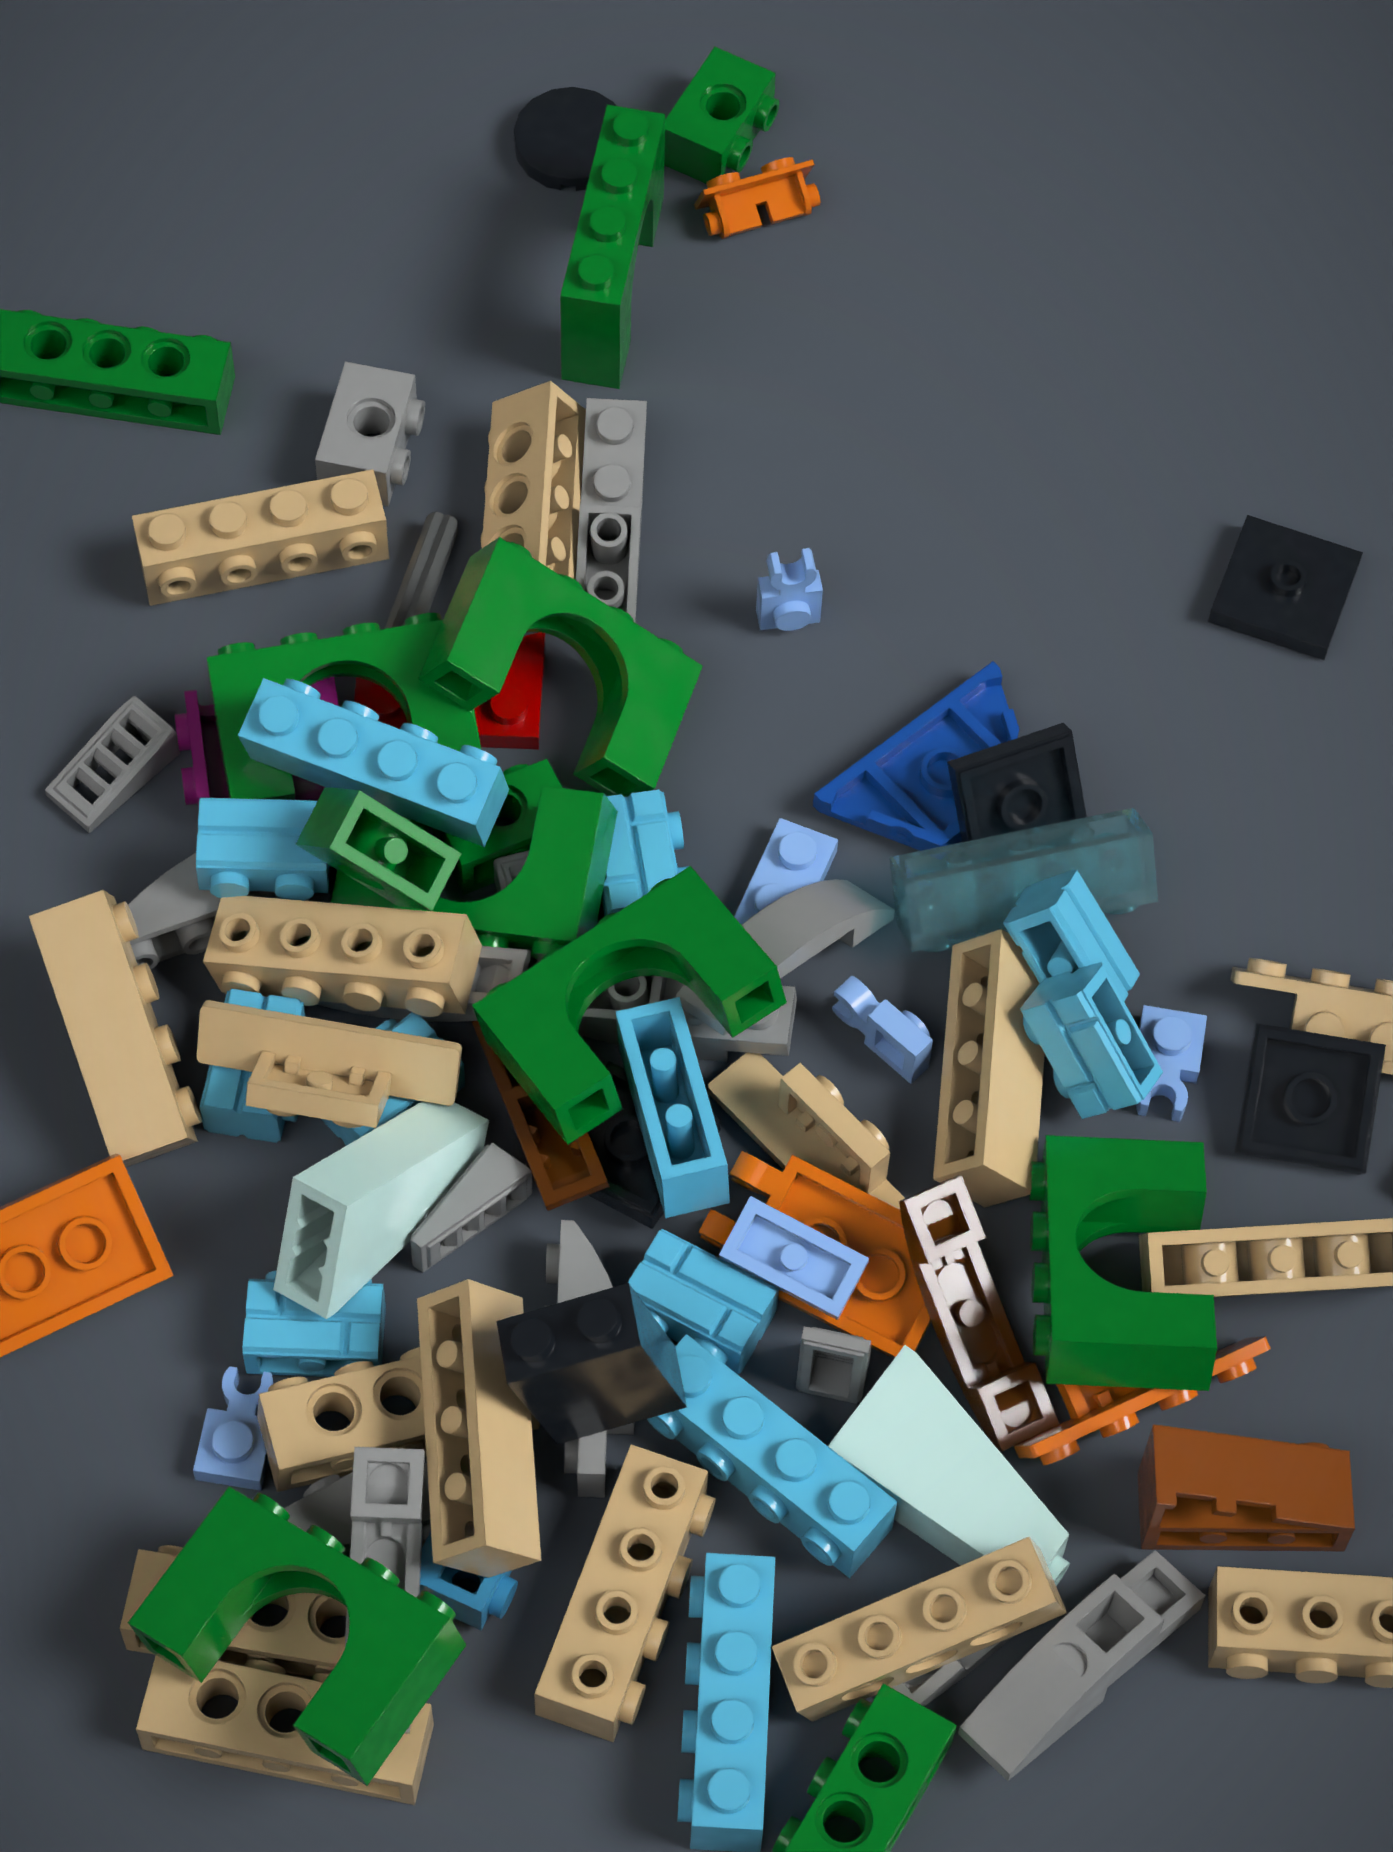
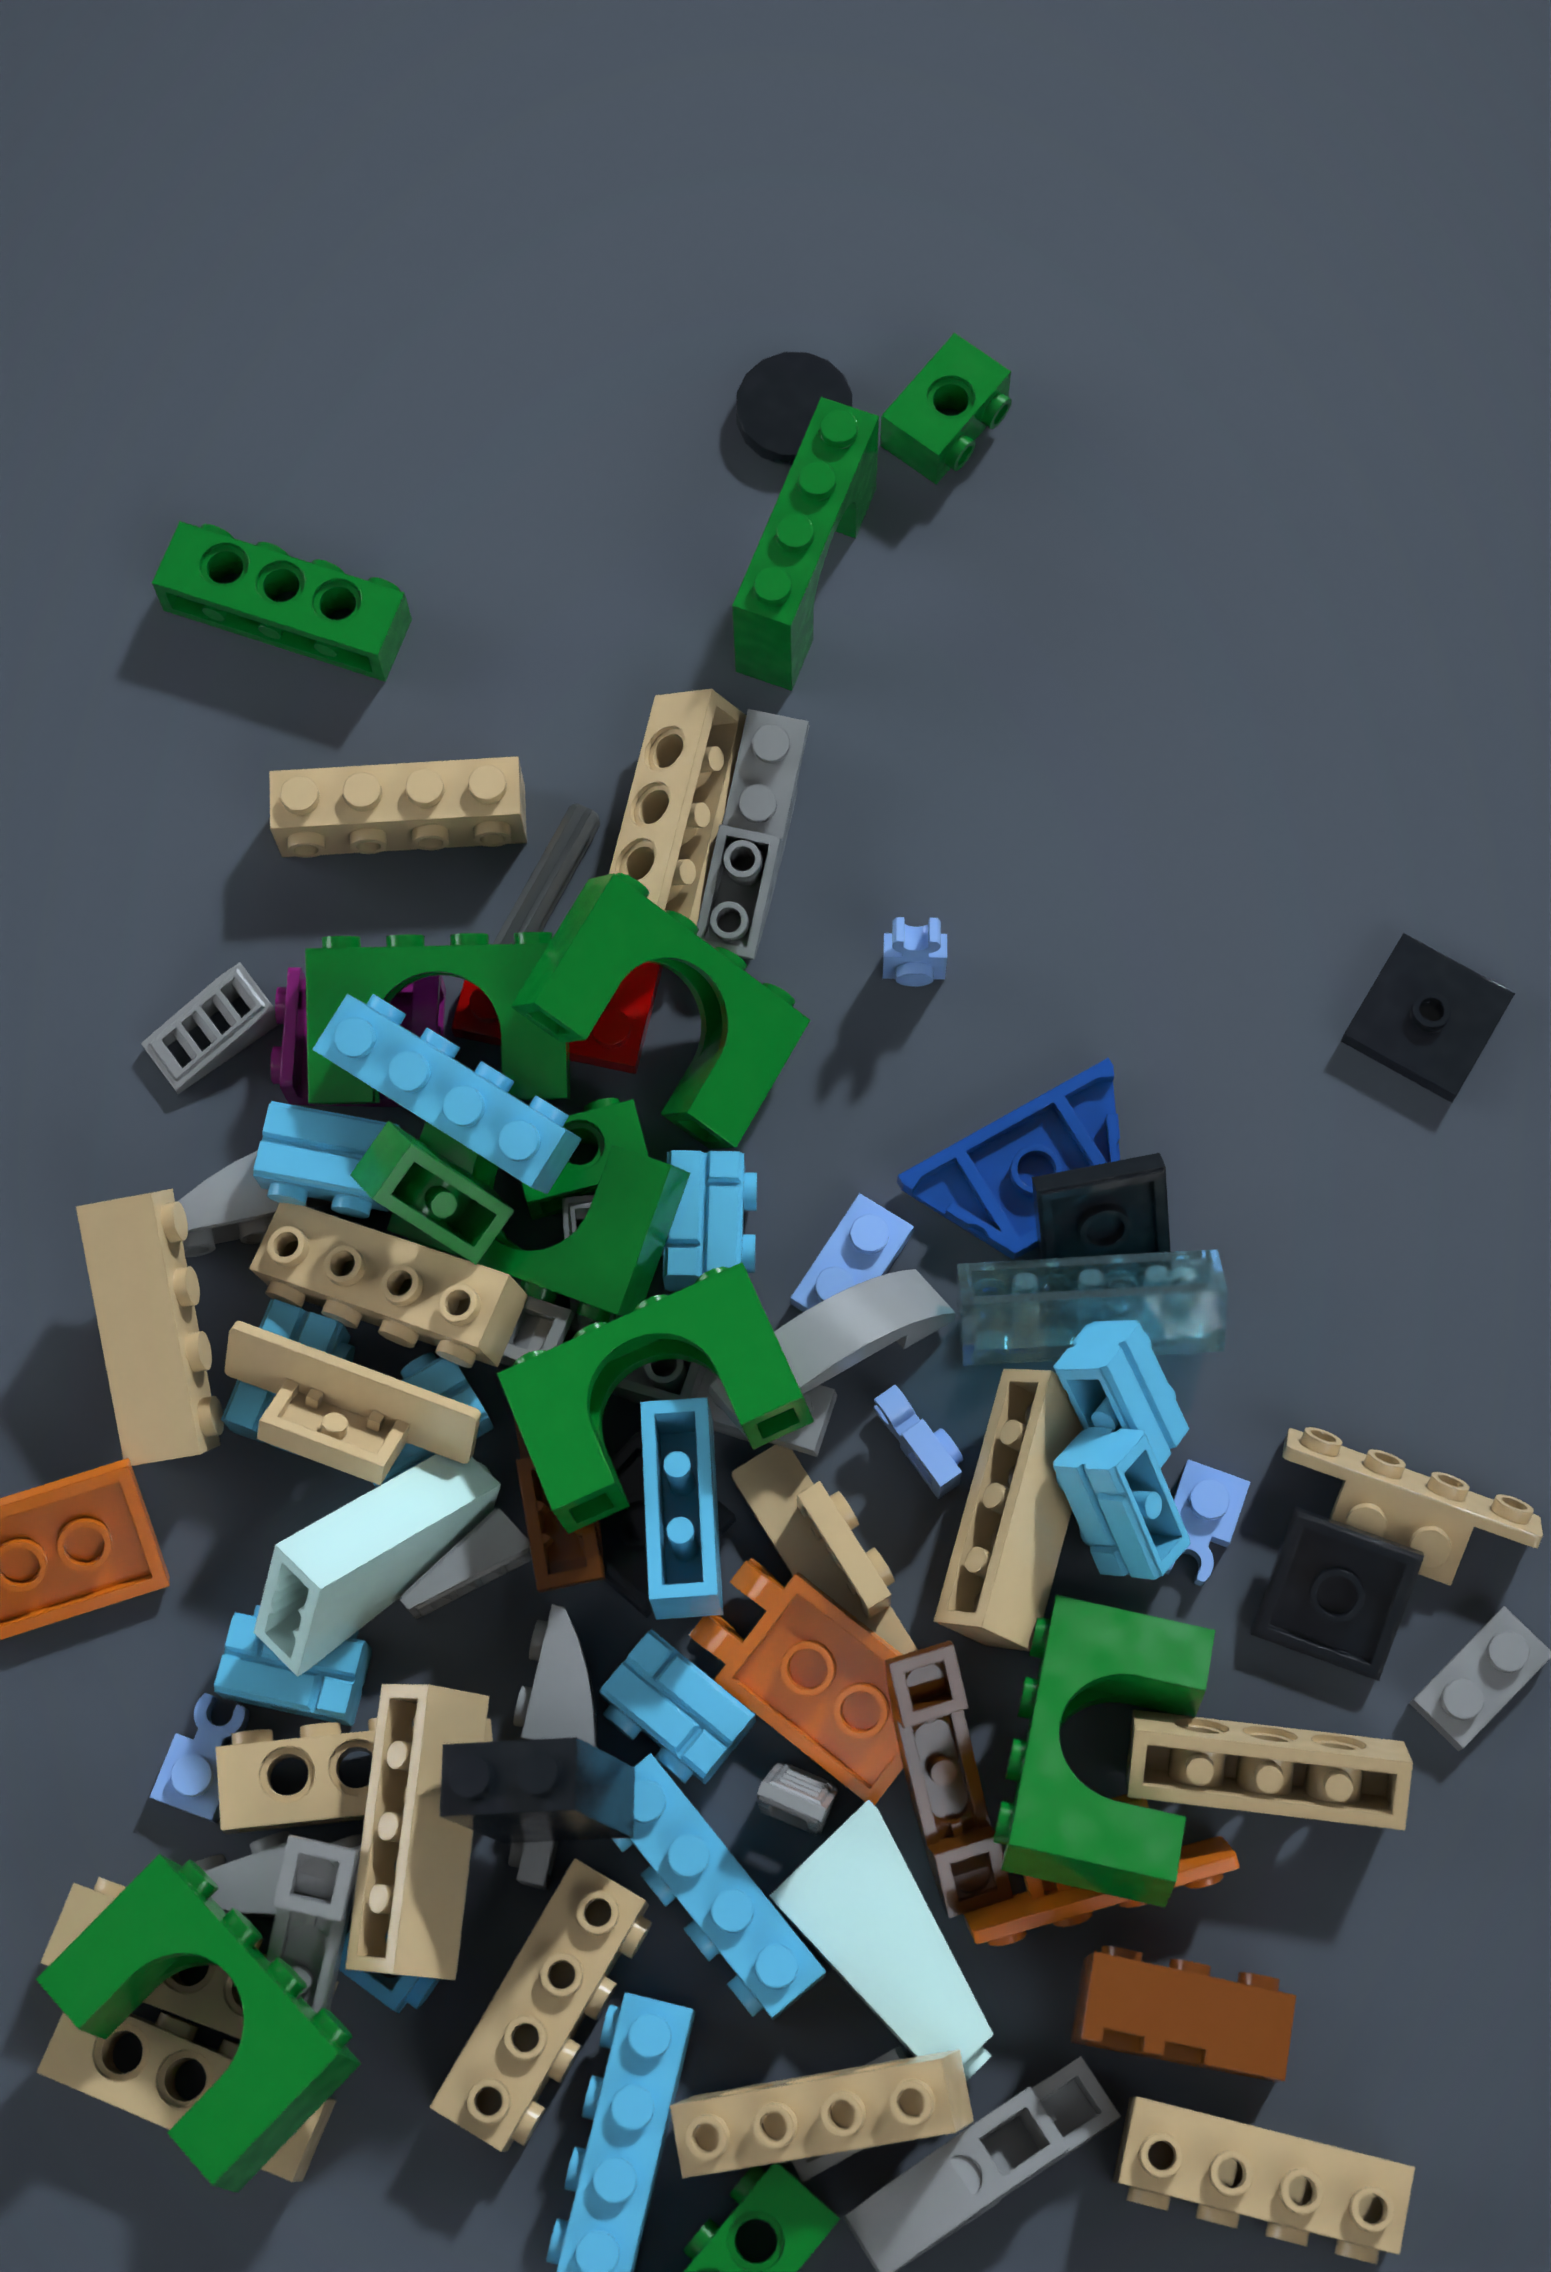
camera: 15 degrees right, 10 degrees up
(371, 403) = (525, 676): light grey brick -> none
(736, 200) = (994, 498): orange hinge -> none
(794, 1258) = (775, 1687): light blue plate -> none

